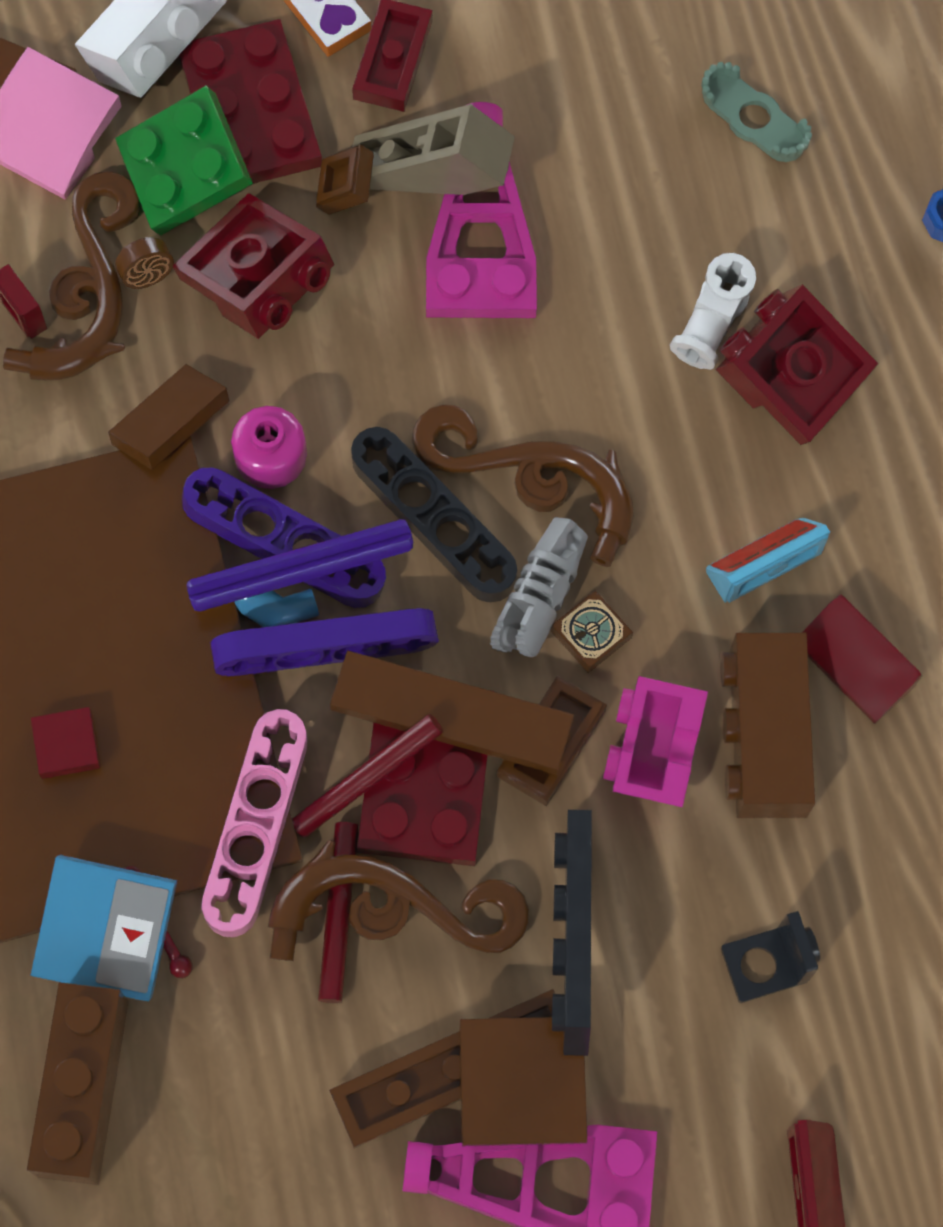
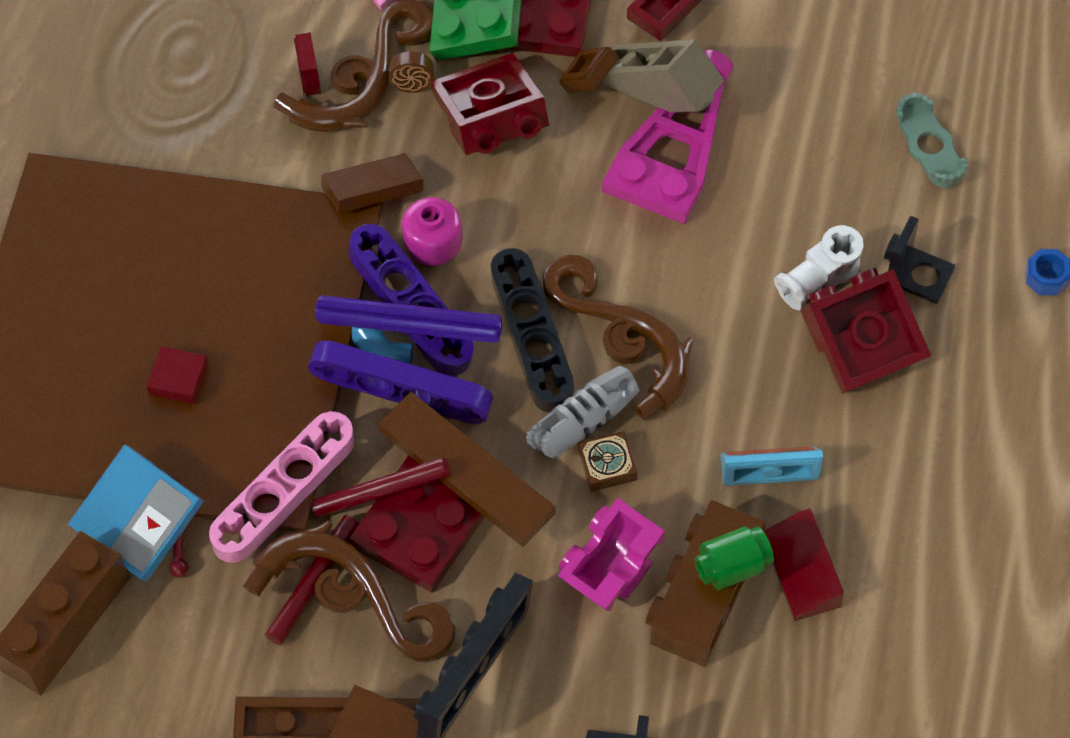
camera: 30 degrees right, 10 degrees down
(587, 713) = (568, 520): reddish brown tile -> none
(793, 256) = (906, 258): none -> black bracket
(801, 691) = (733, 557): none -> green brick

